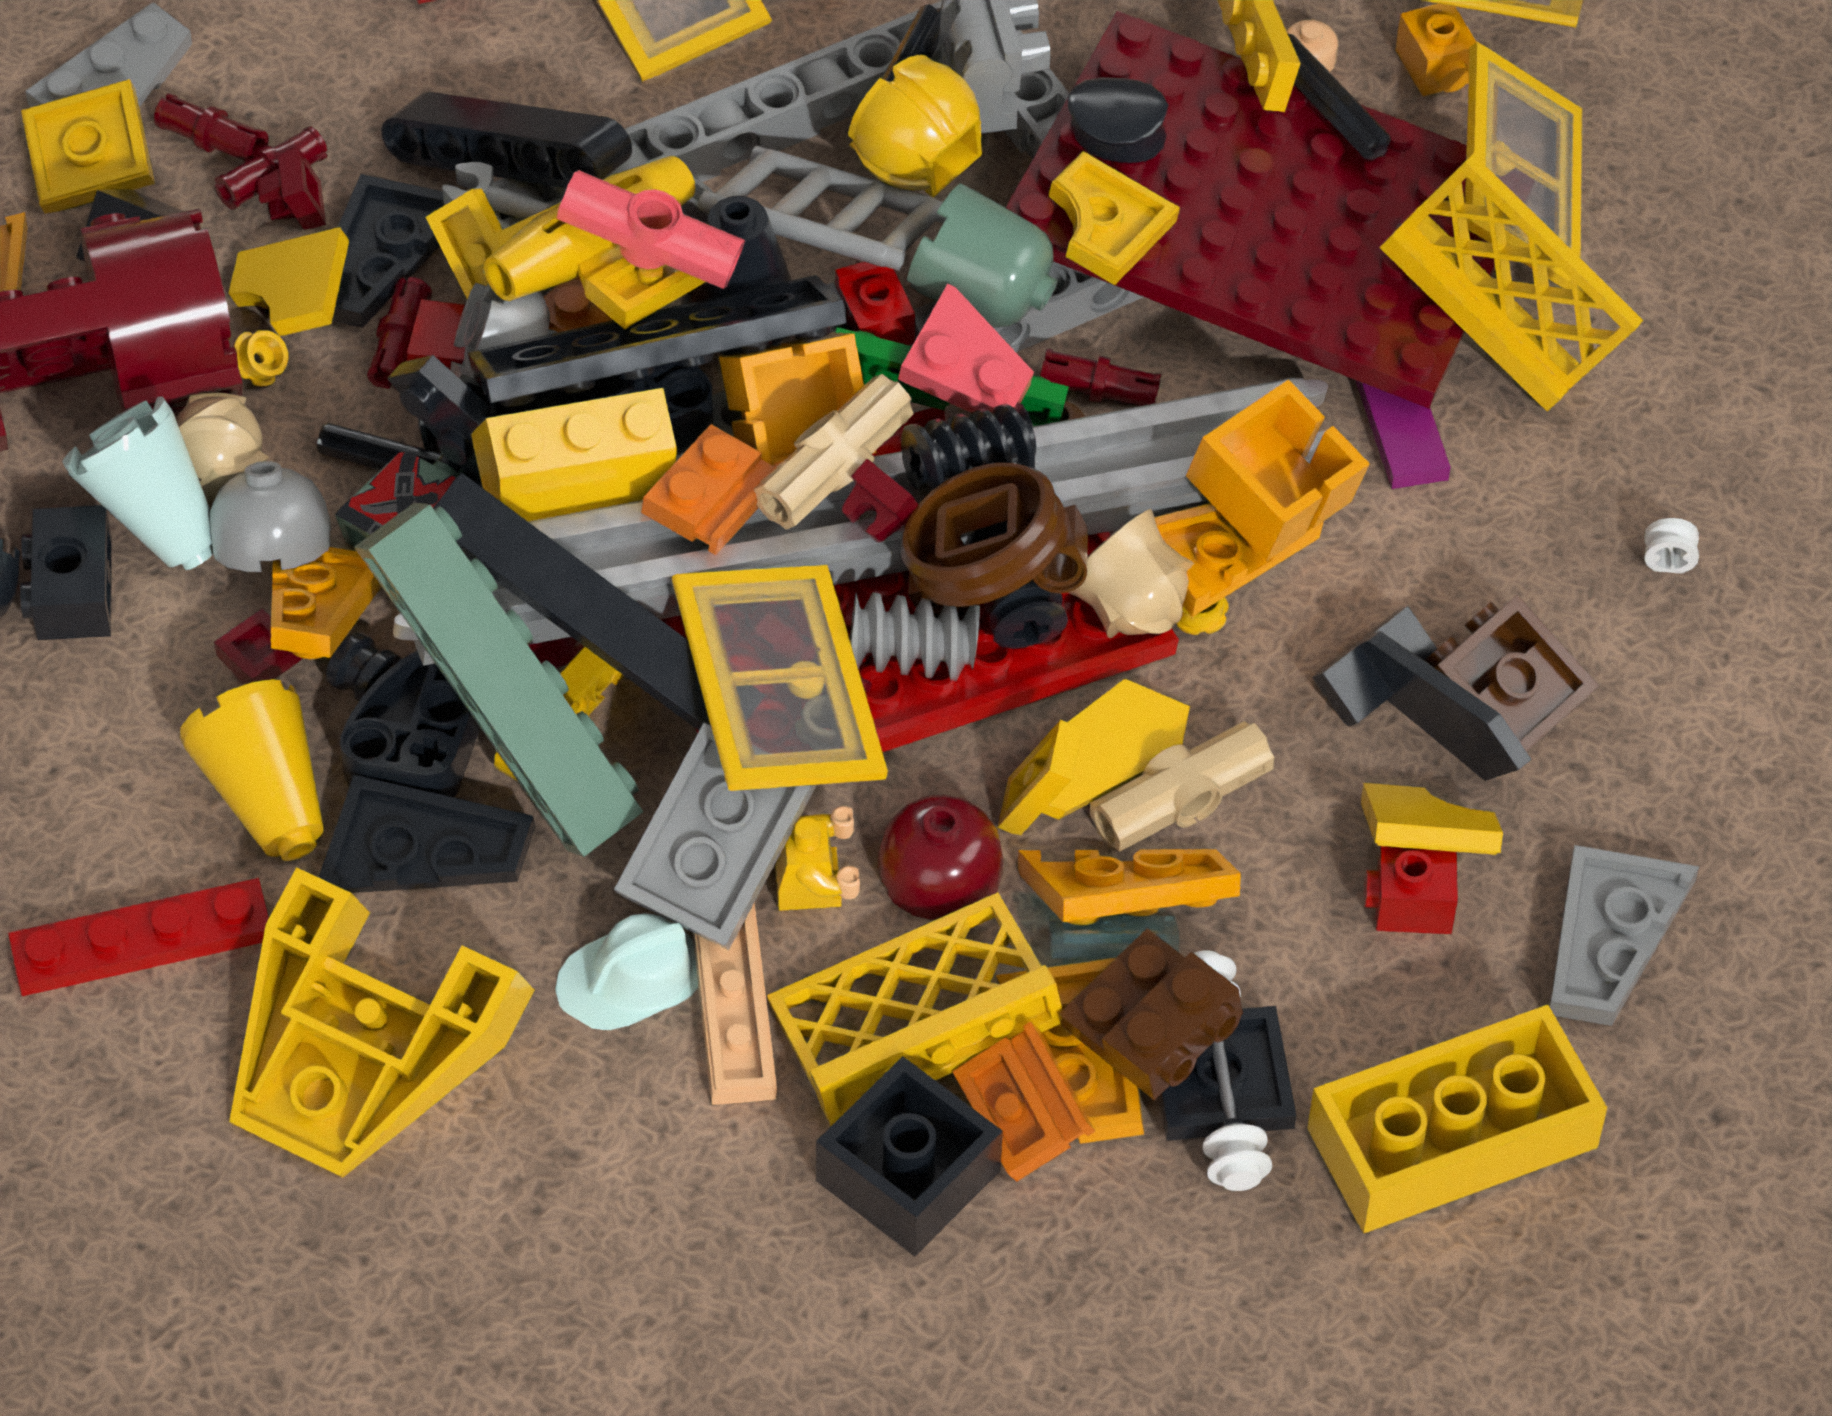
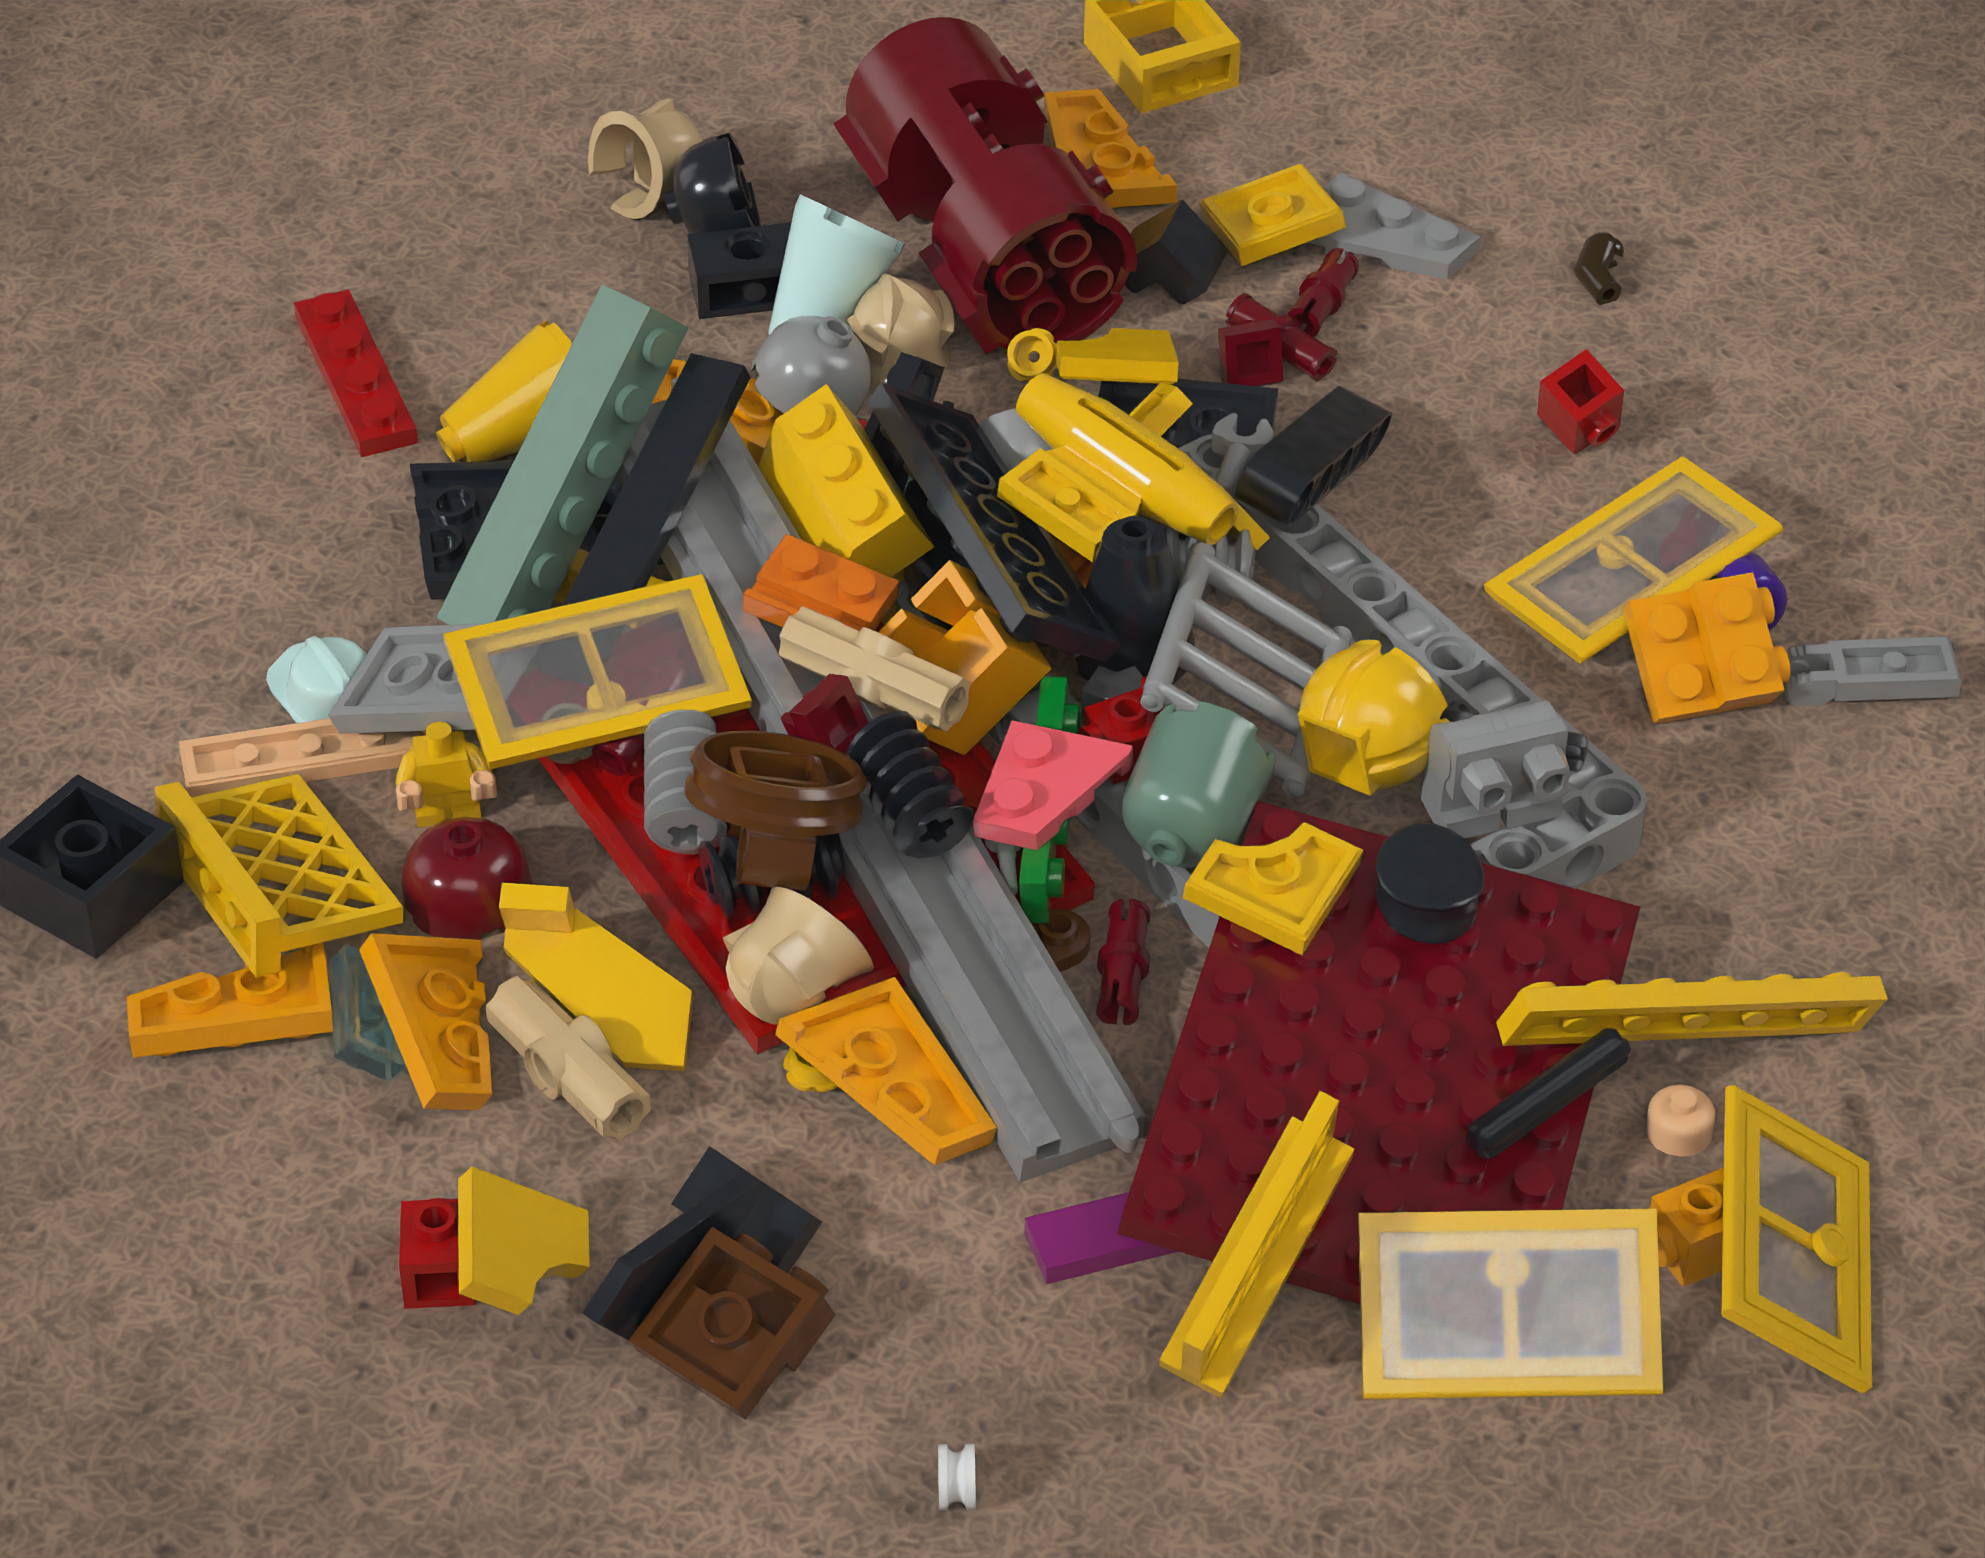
camera: 85 degrees right, 10 degrees down
(343, 1058) = (239, 500): yellow wedge -> none
(650, 229) = (1091, 467): coral piece -> none
(1026, 1097) = (160, 954): orange plate -> none
(1154, 1013) = (240, 1021): reddish brown plate -> none
(1234, 1095) = (203, 1109): black plate -> none
(1258, 470) = (942, 1050): light orange piece -> none
(1456, 1118) = (127, 1285): yellow brick -> none
(1611, 928) = (398, 1432): light grey wing -> none

